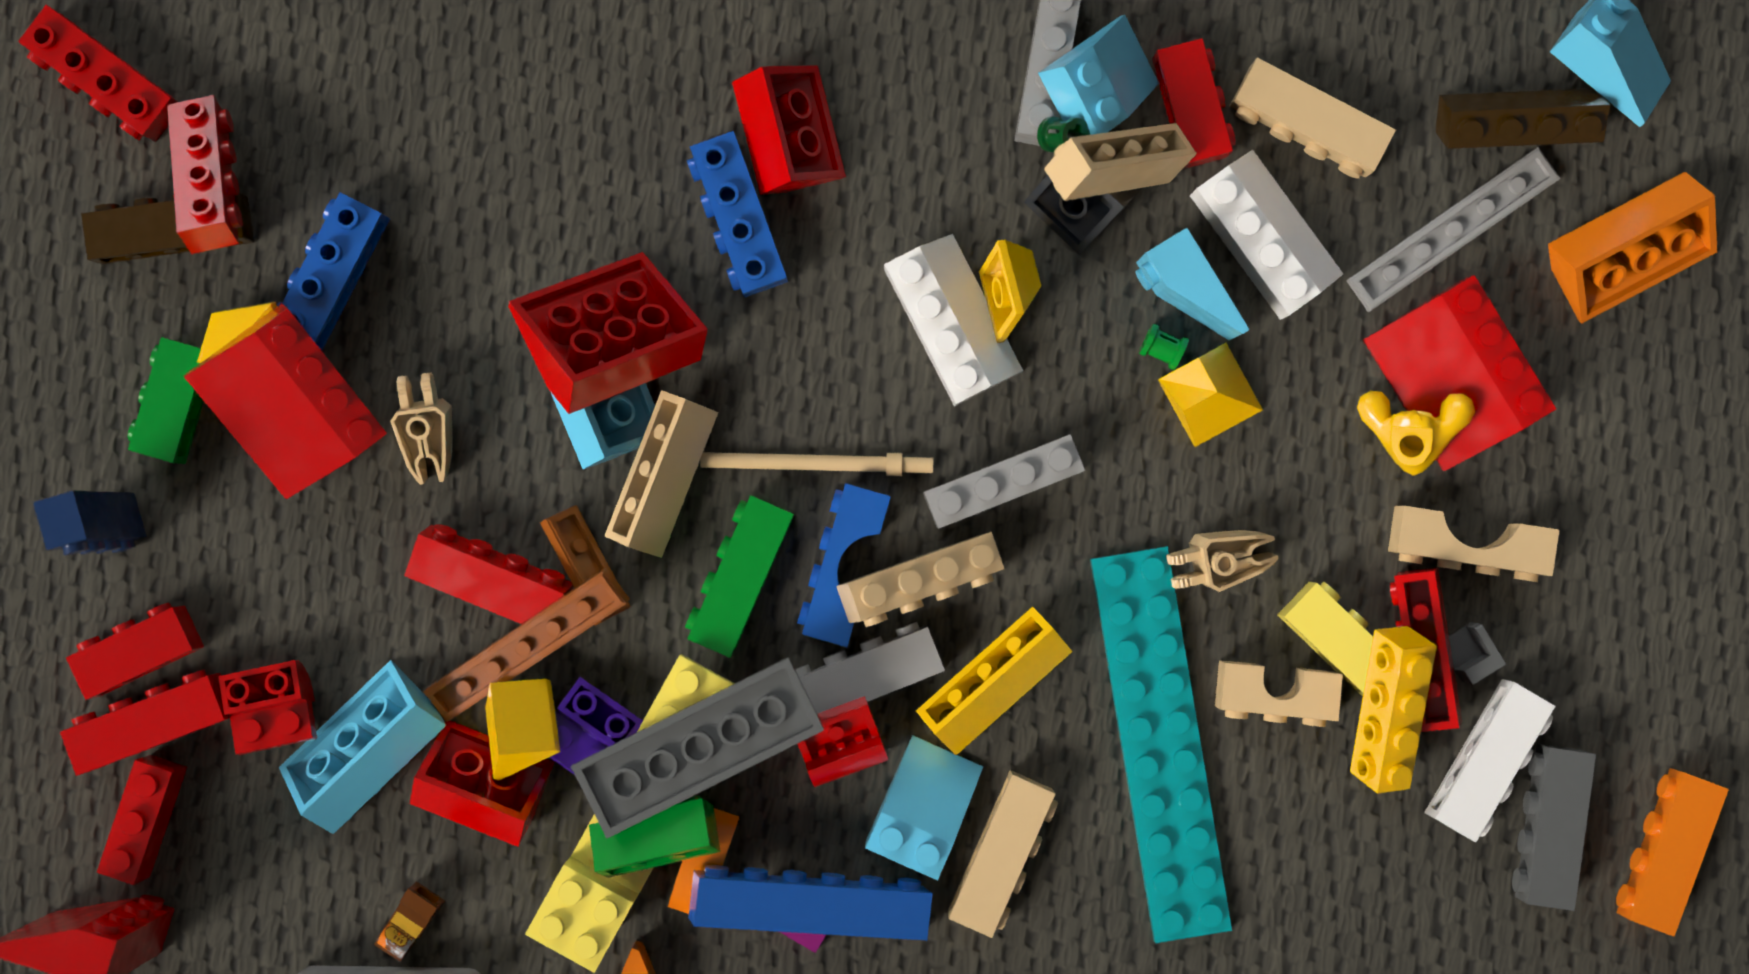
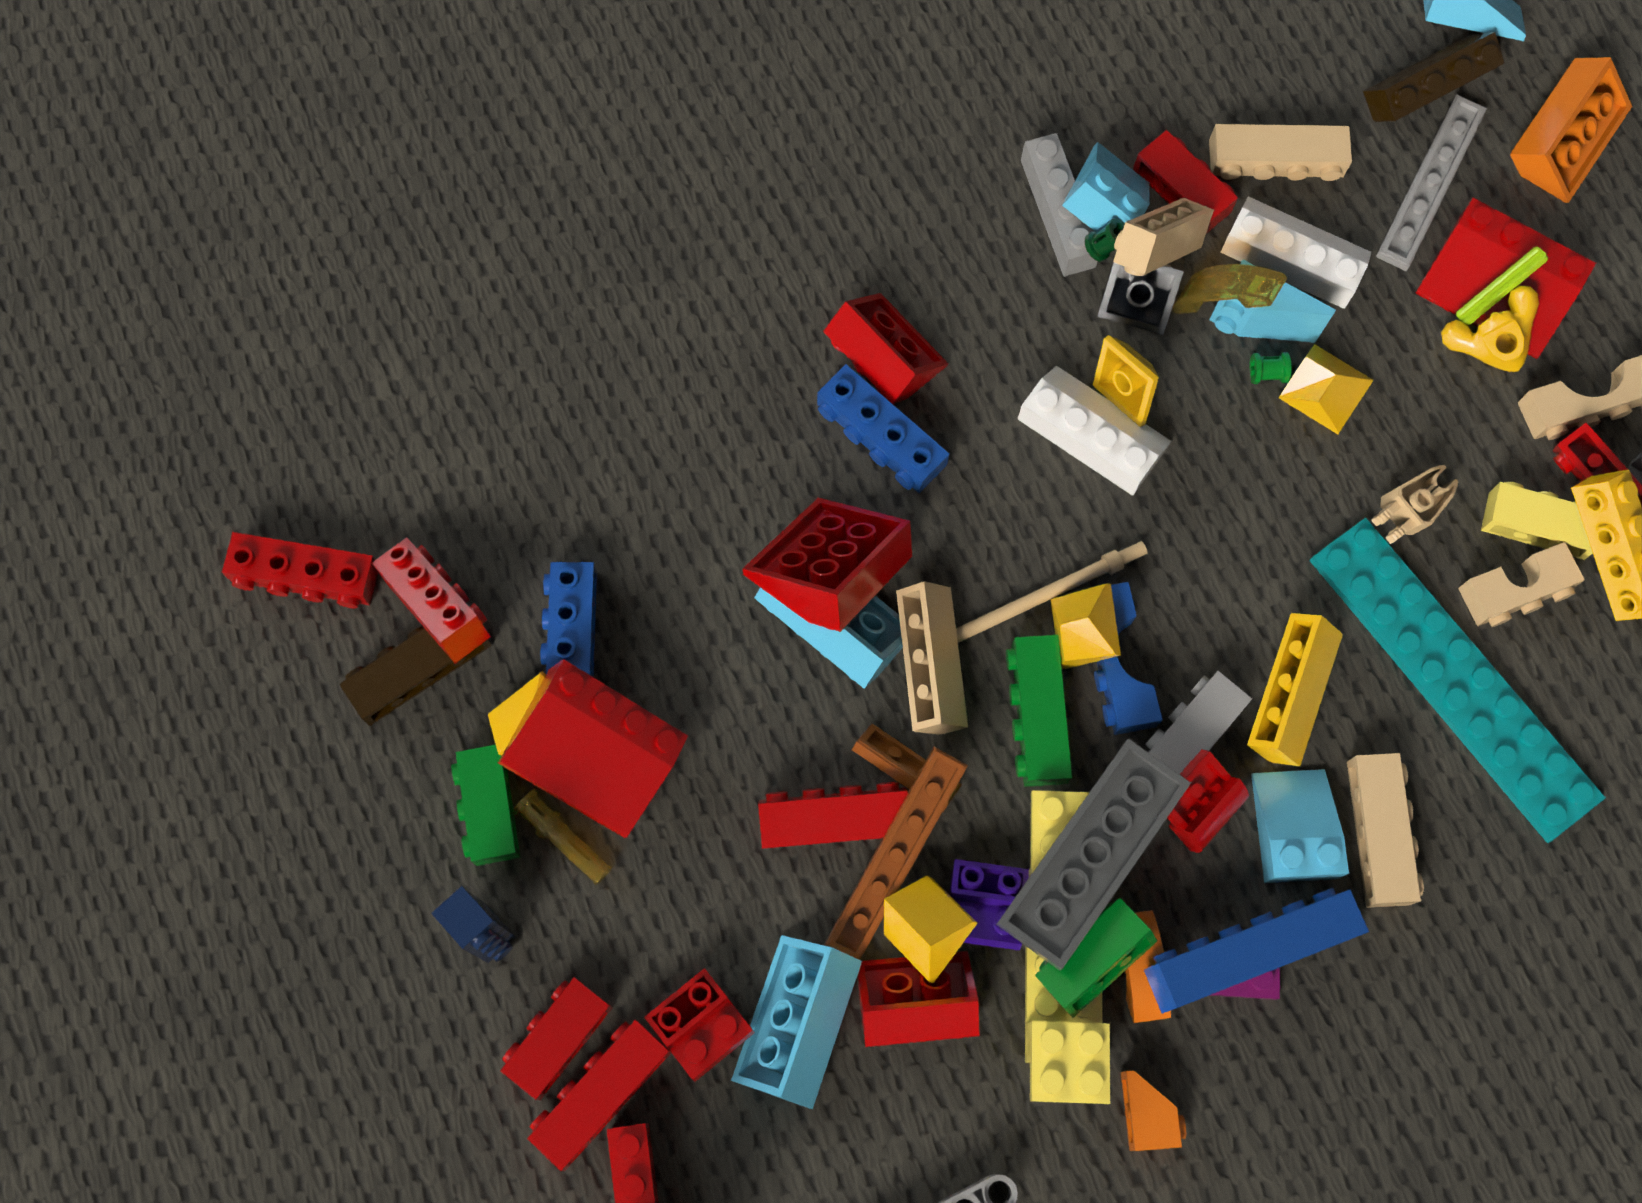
camera: 25 degrees left, 15 degrees down
(217, 449) = (550, 826): none -> clear yellow pin
(409, 921) = (917, 1158): reddish brown leg -> none
(423, 428) = (714, 719): tan hinge -> none
(822, 519) = (1086, 626): none -> yellow slope
(920, 577) = (1186, 636): tan brick -> none
(1003, 481) = (1208, 529): light grey brick -> none
(1157, 252) = (1247, 283): none -> clear yellow slope
(1446, 383) = (1502, 285): none -> lime axle

